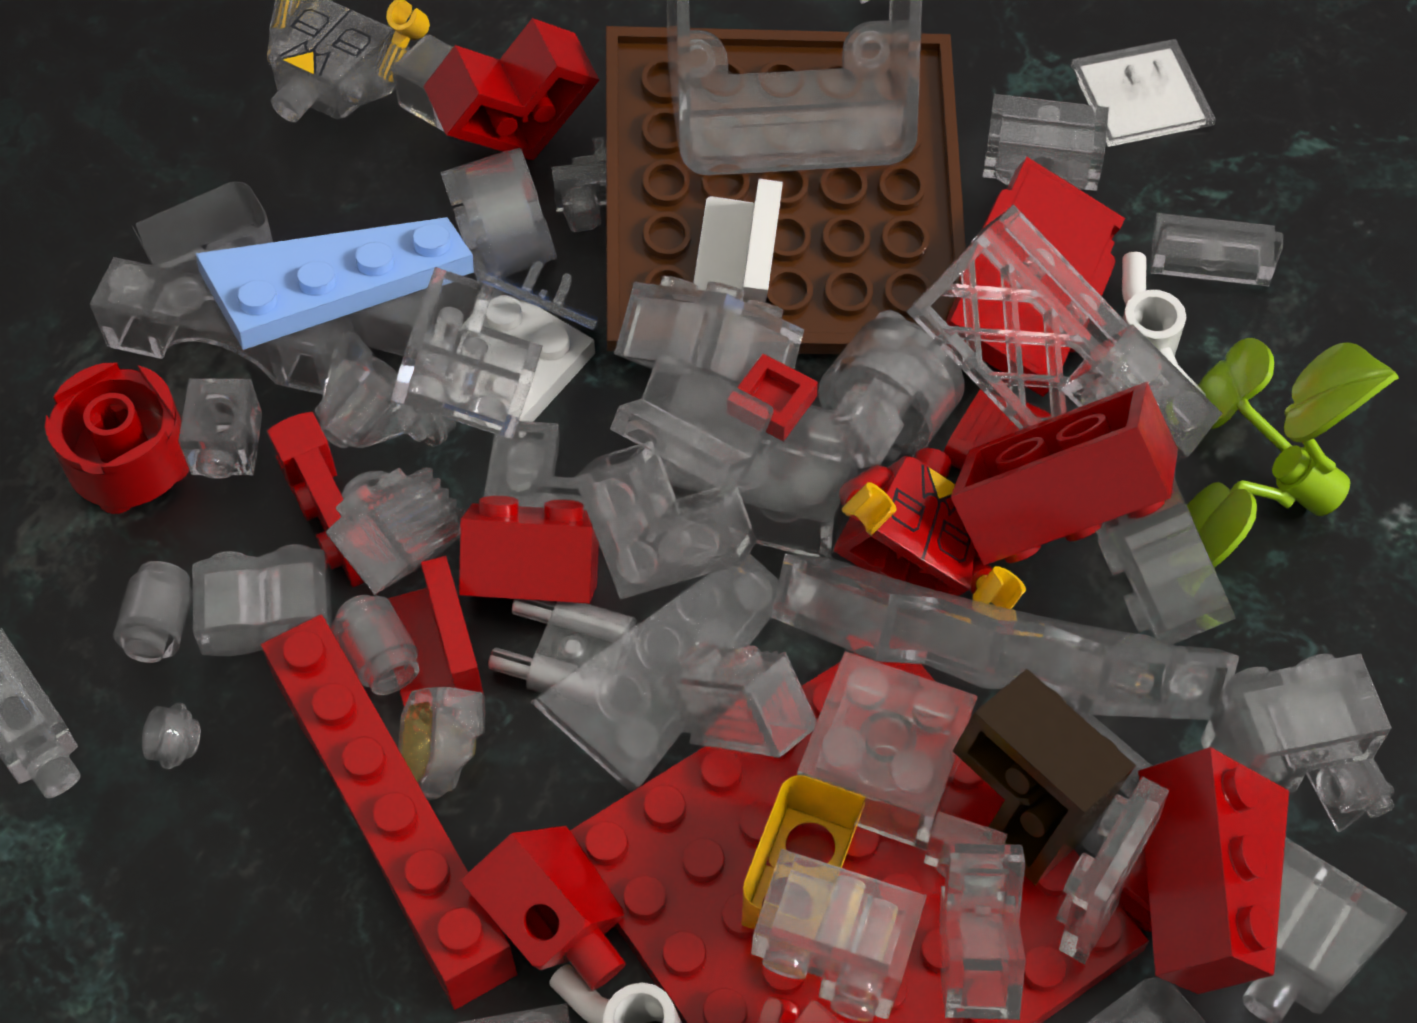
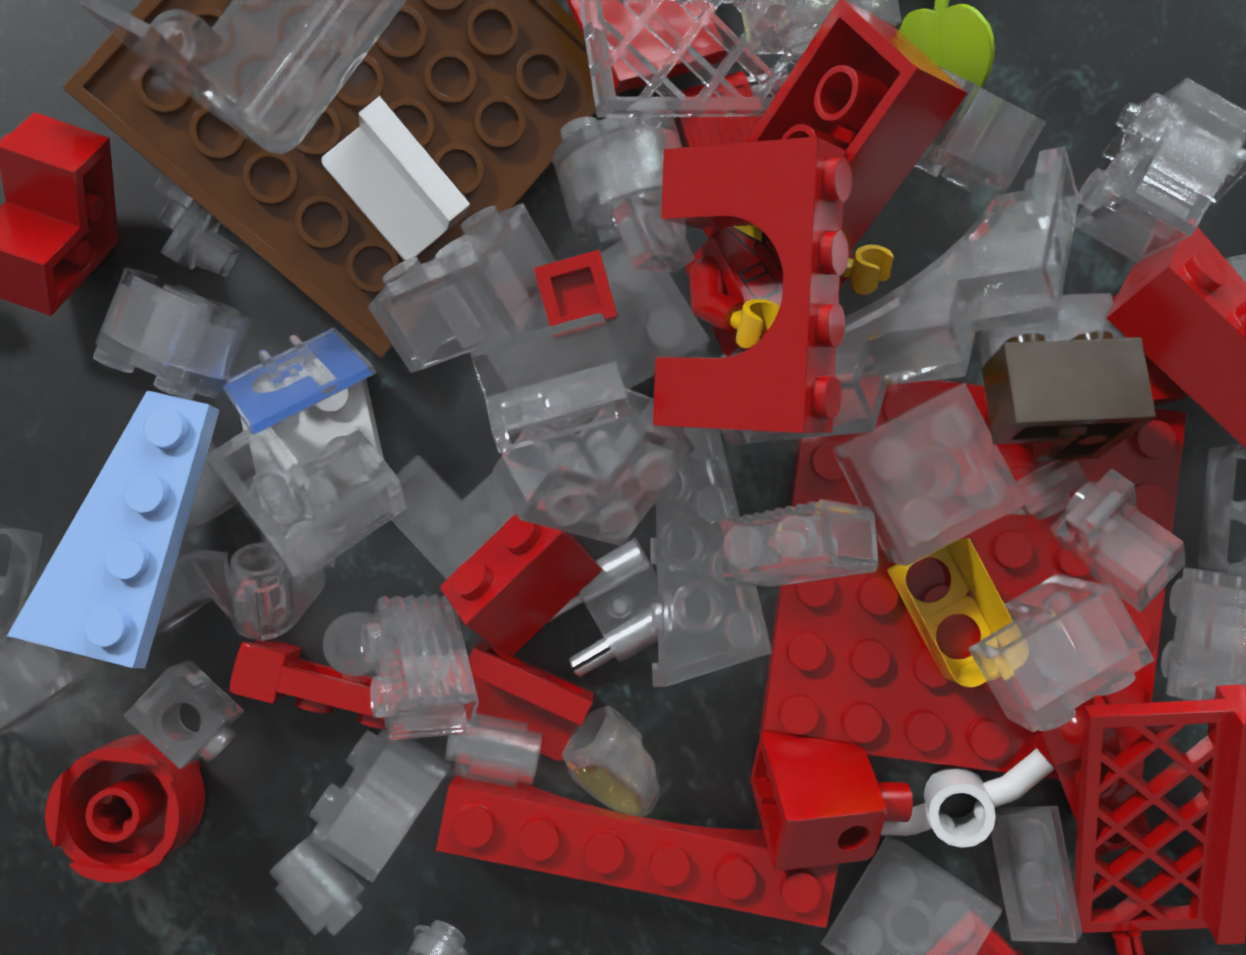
camera: 50 degrees left, 30 degrees up
(847, 549) = (797, 199): none -> red arch
(1098, 882) = (1182, 436): clear plate -> none

